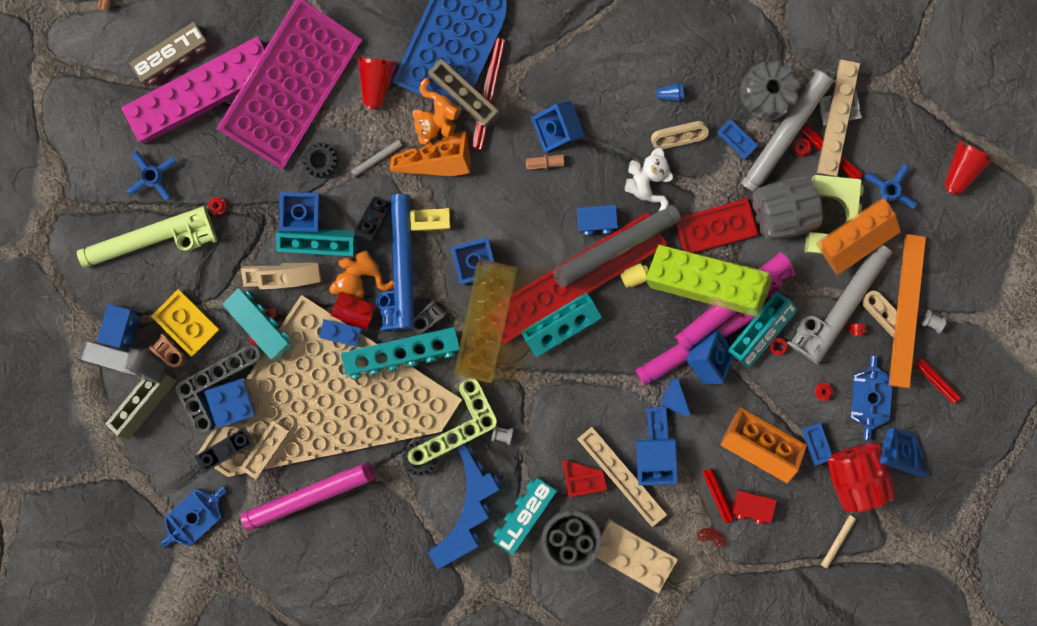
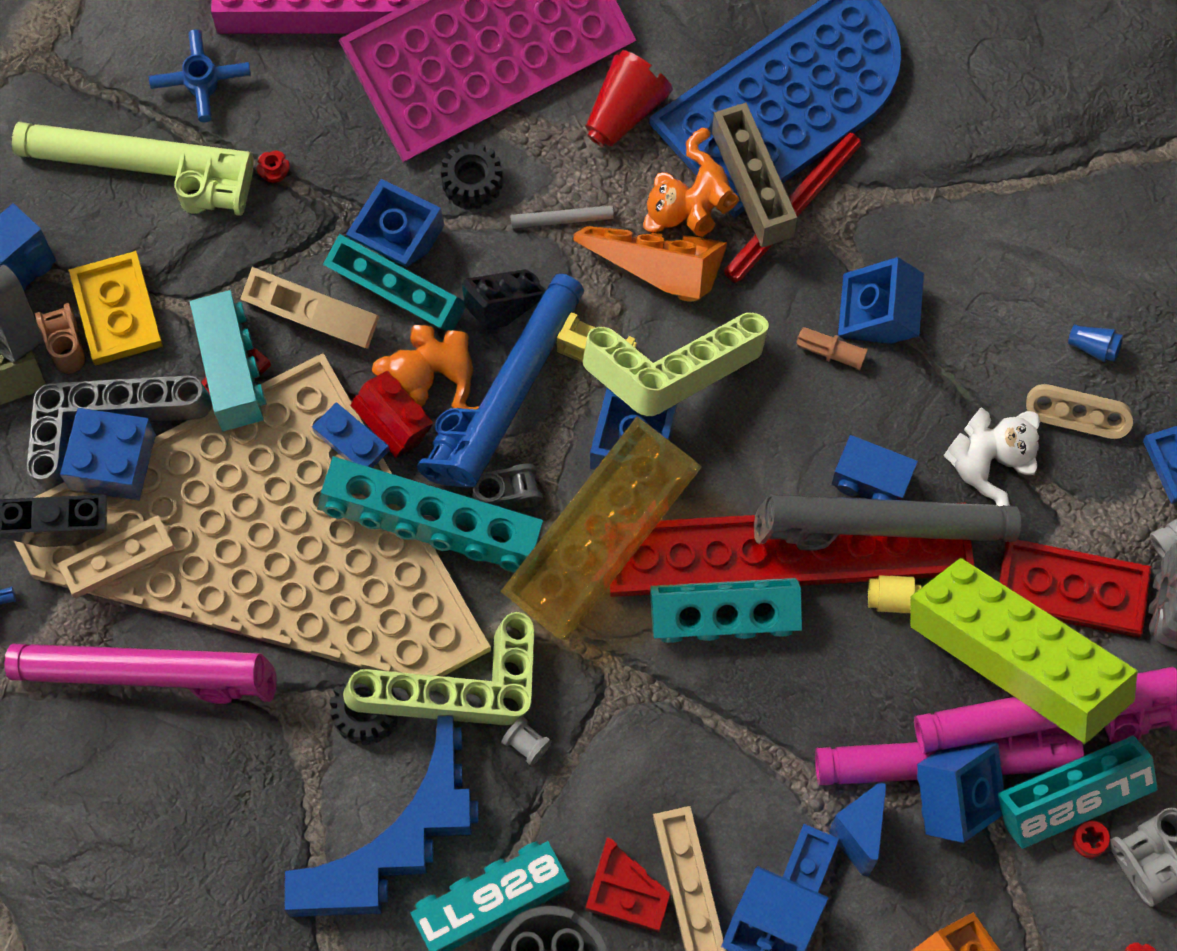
camera: 25 degrees right, 20 degrees down
(480, 217) = (662, 384): none -> yellowish green beam

